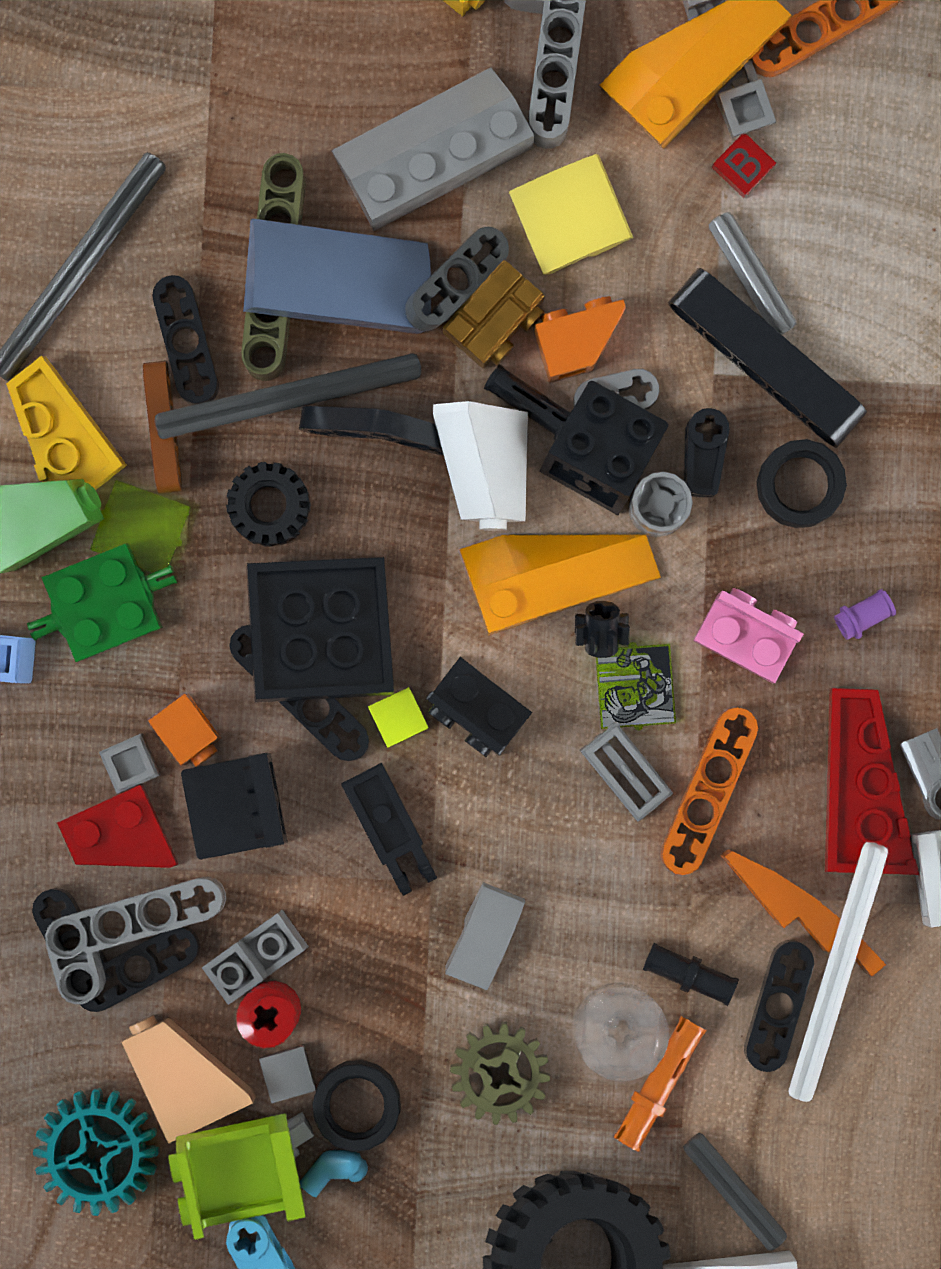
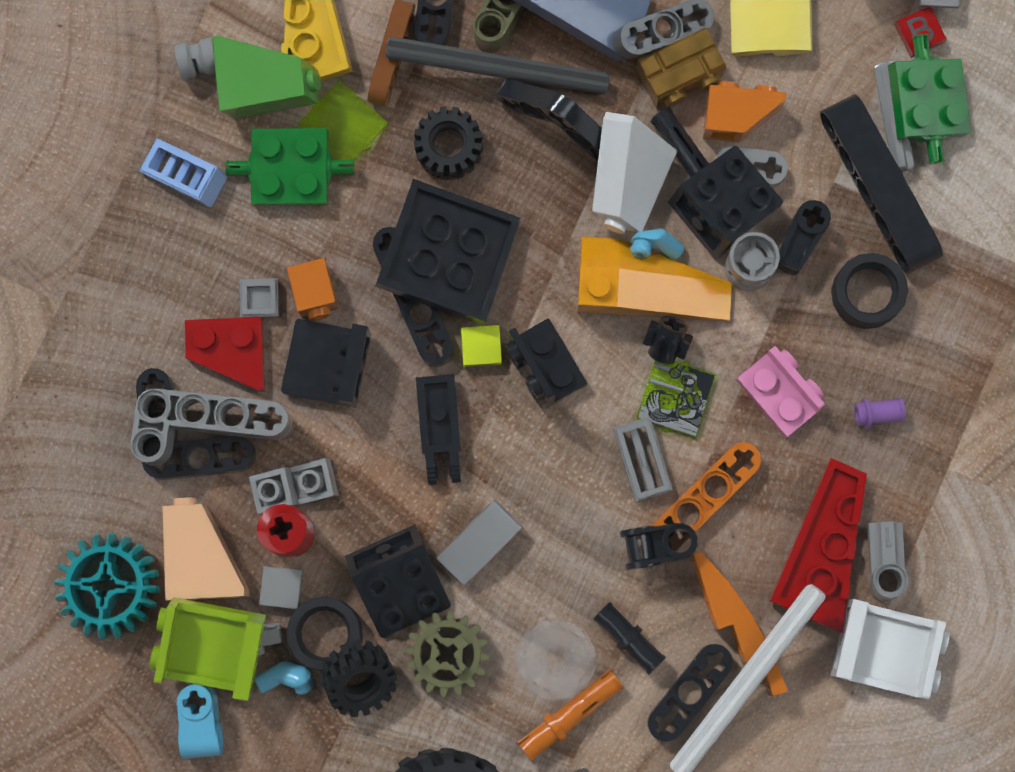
camera: 30 degrees right, 5 degrees down
(402, 1128) = (355, 661): none -> black tyre
(411, 1015) = (397, 581): none -> black bracket
(546, 520) = (659, 239): none -> medium azure arm
(680, 864) = (655, 545): none -> black piece
(783, 240) = (929, 99): none -> green plate

